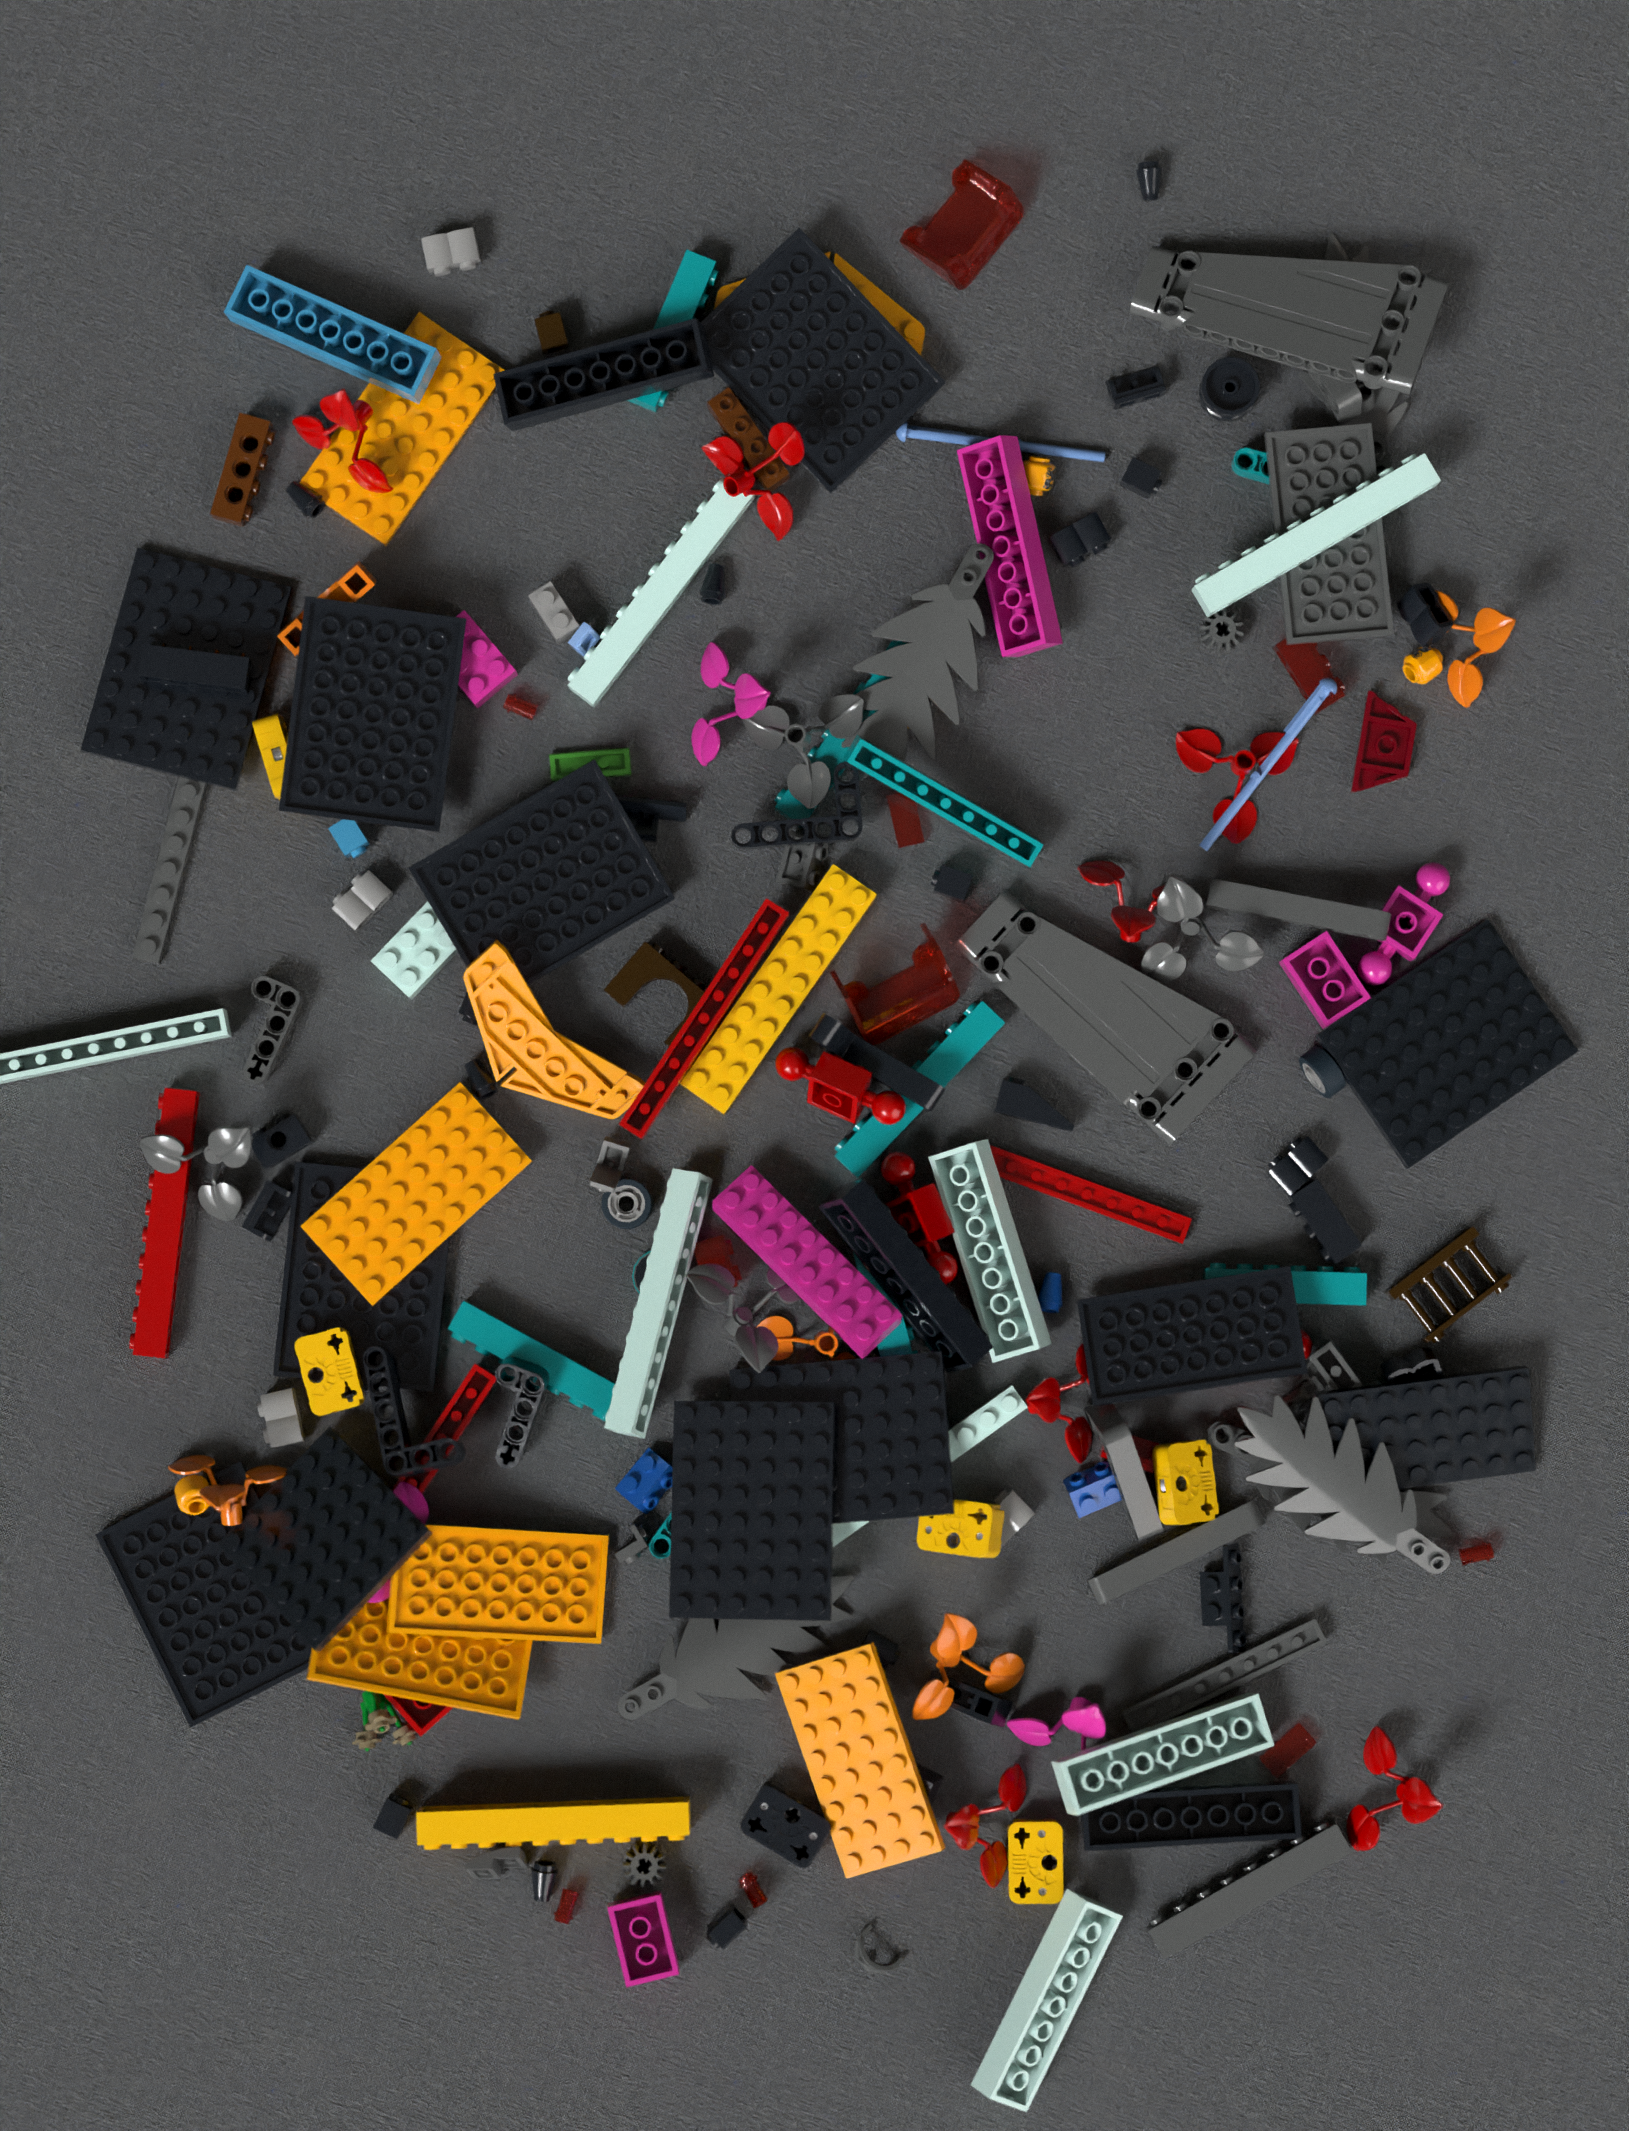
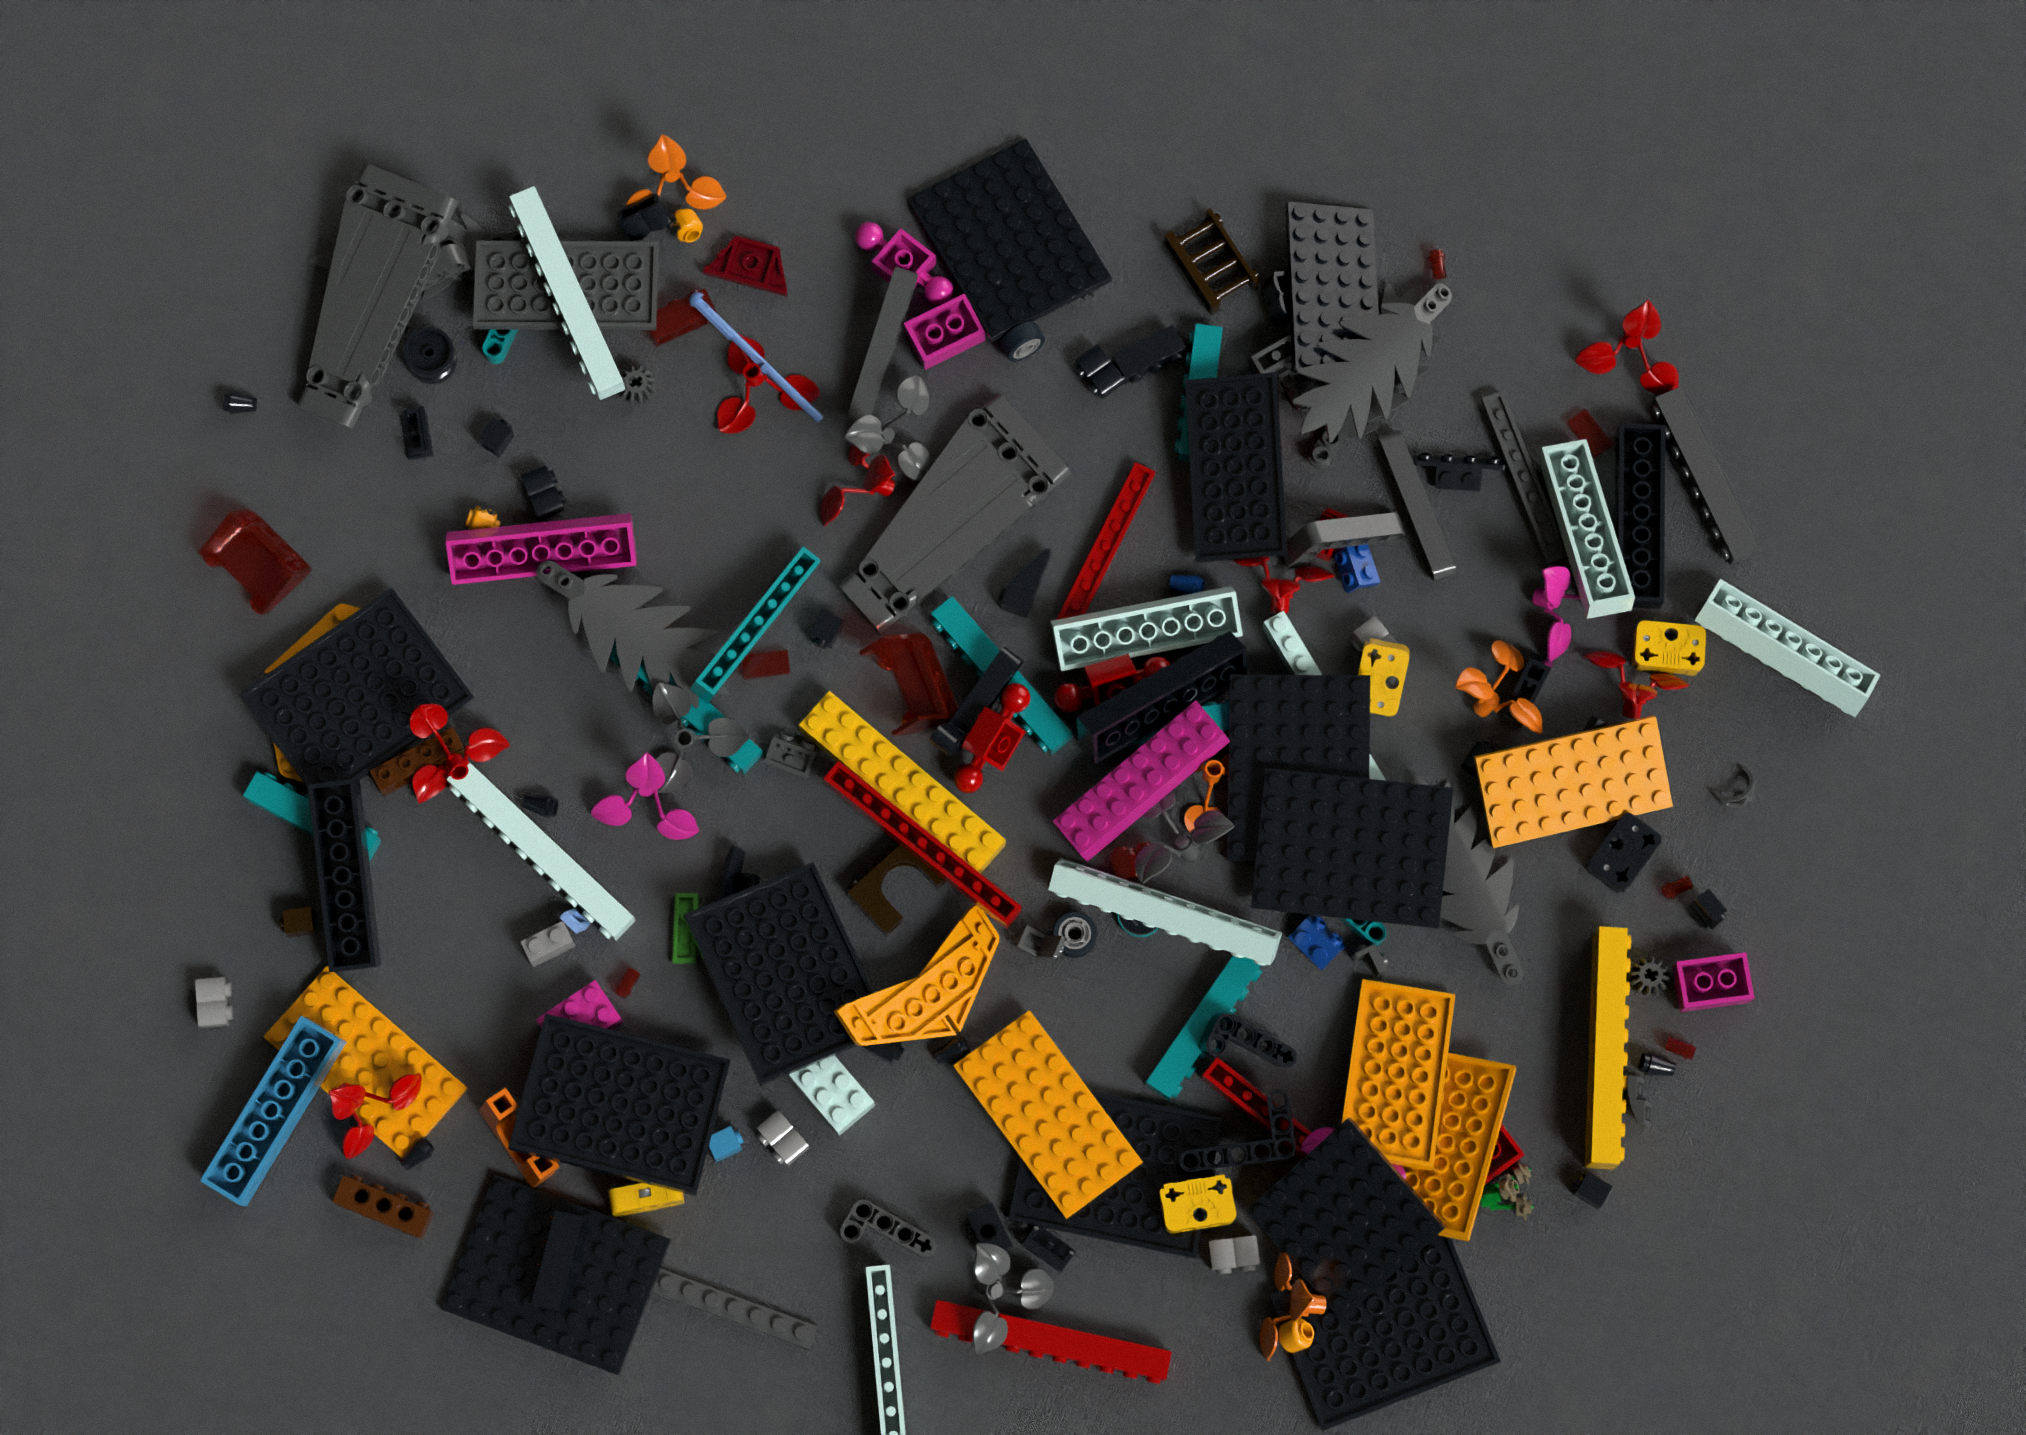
camera: 85 degrees left, 10 degrees down
(809, 824) = (764, 739): black beam -> none
(955, 437) = (440, 584): medium blue bar -> none
(1185, 1482) = (1358, 489): yellow axle -> none

